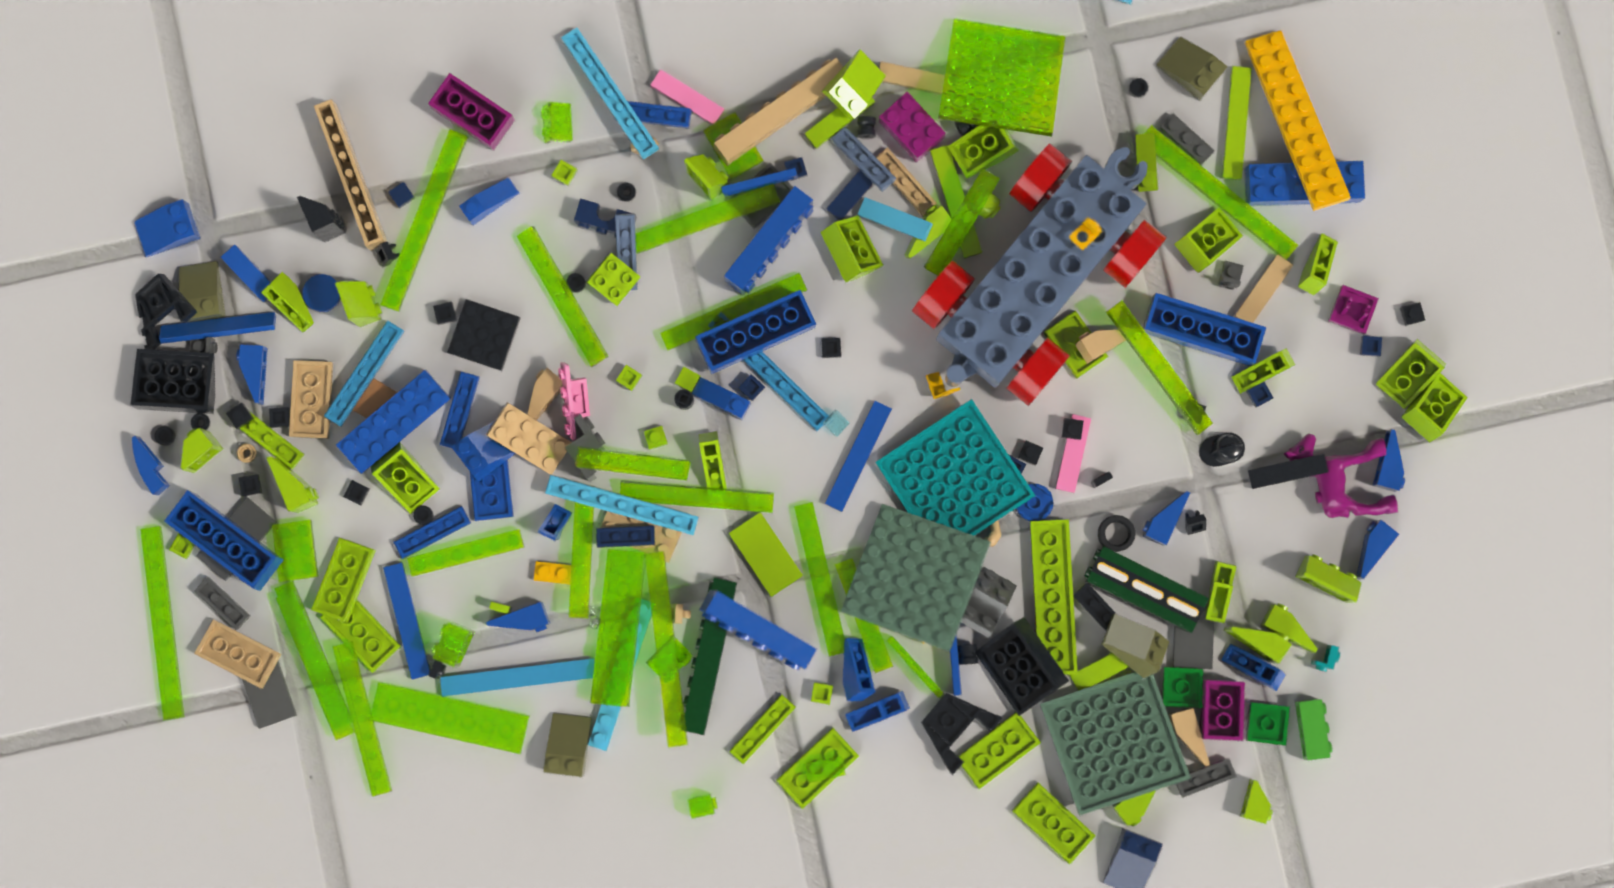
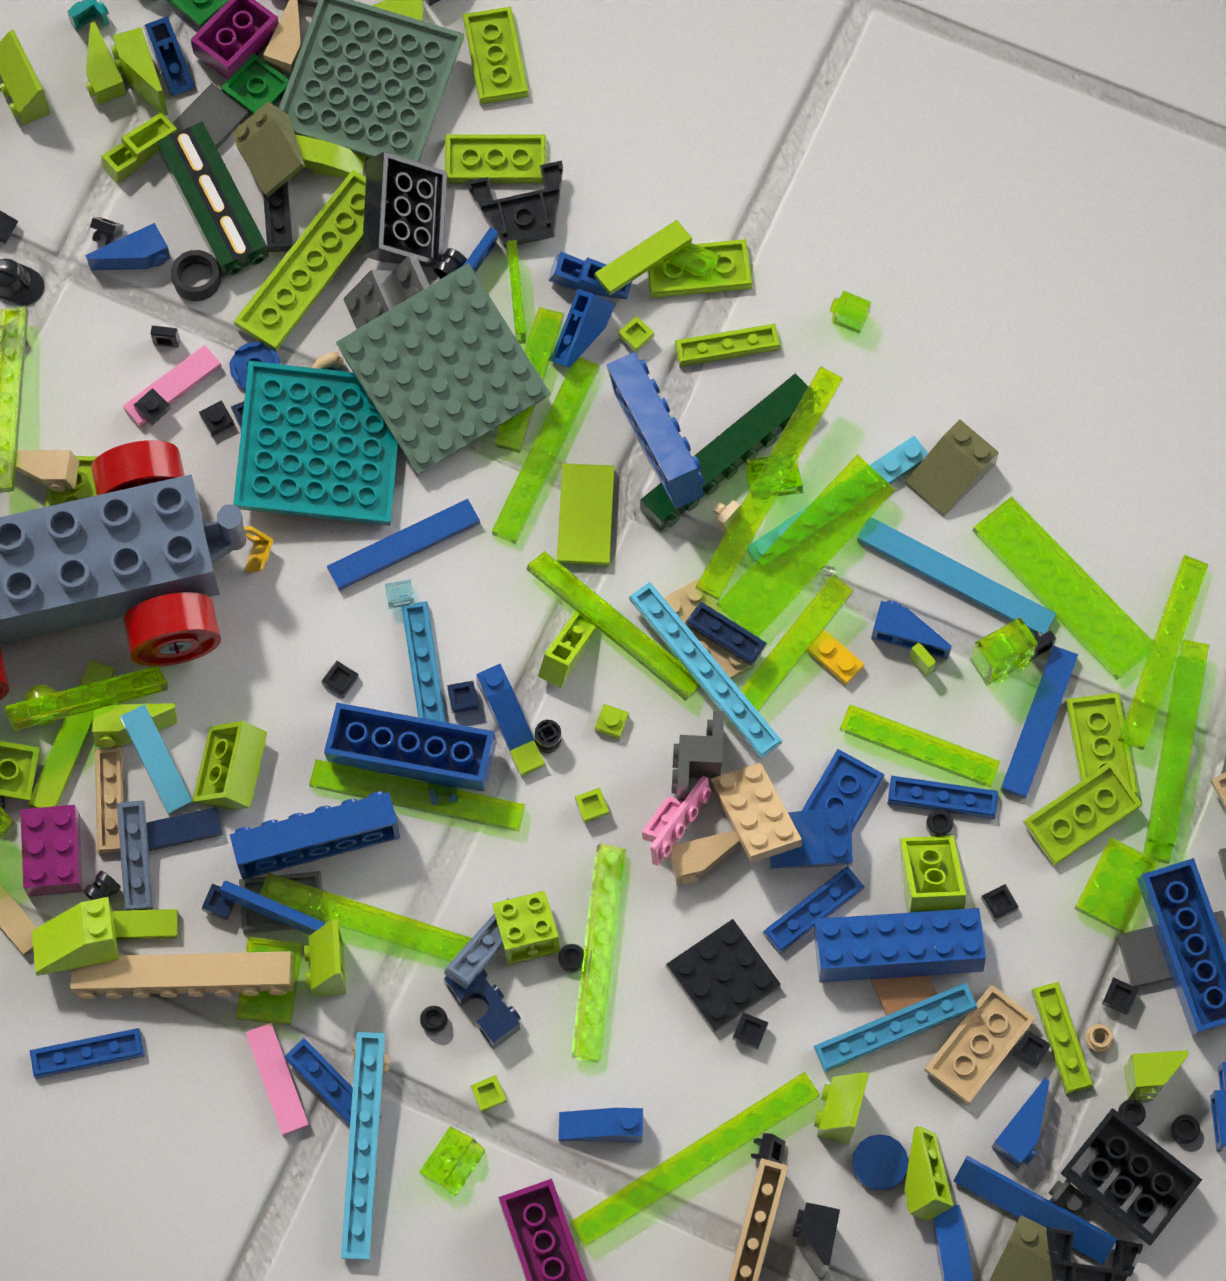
camera: 145 degrees left, 15 degrees down
(239, 415) = (1078, 1083): black plate -> none
(295, 491) = (1068, 949): lime slope -> none
(401, 194) = (701, 1211): dark blue tile -> none
(555, 522) = (795, 703): blue slope -> none
(632, 463) = (659, 697): clear neon green plate -> none
(802, 36) = (86, 1053): none -> blue tile
(852, 744) = (643, 257): none -> lime tile

